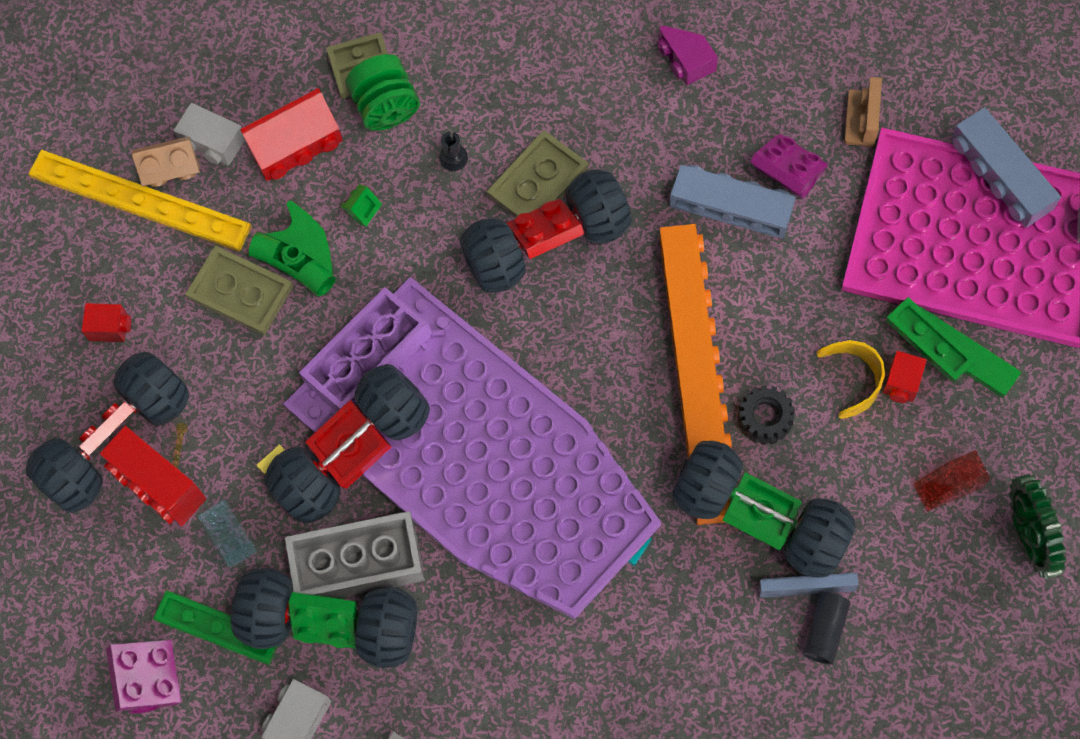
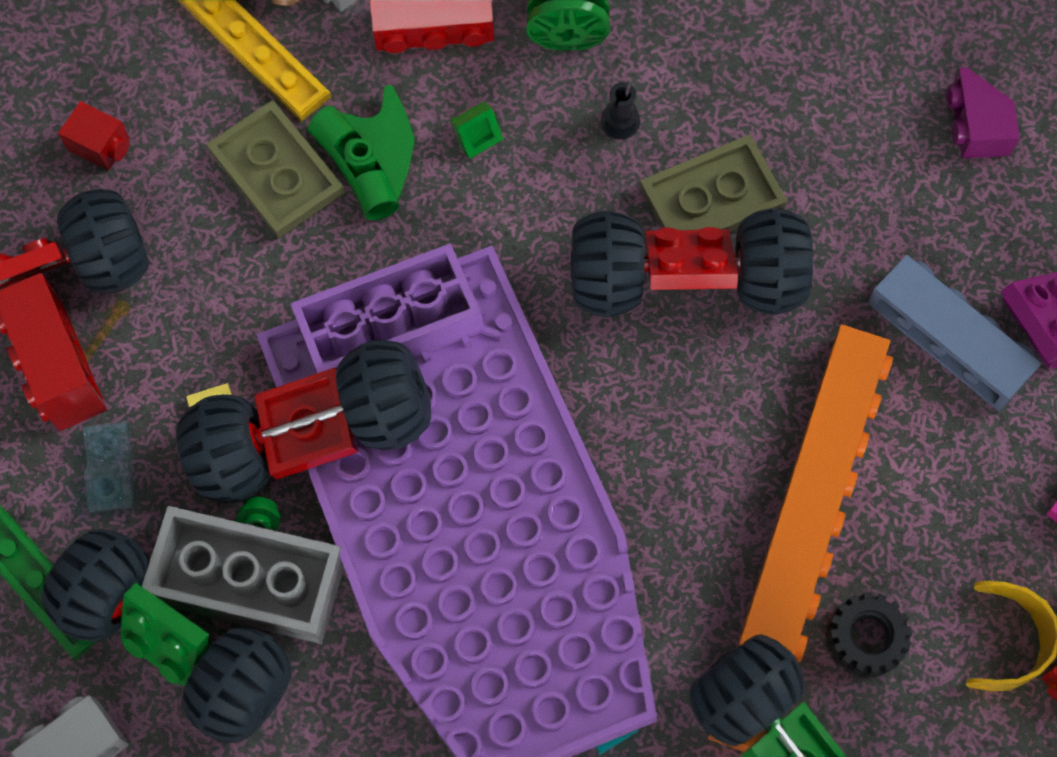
camera: 20 degrees right, 0 degrees up
(343, 515) = (259, 513): none -> green plate

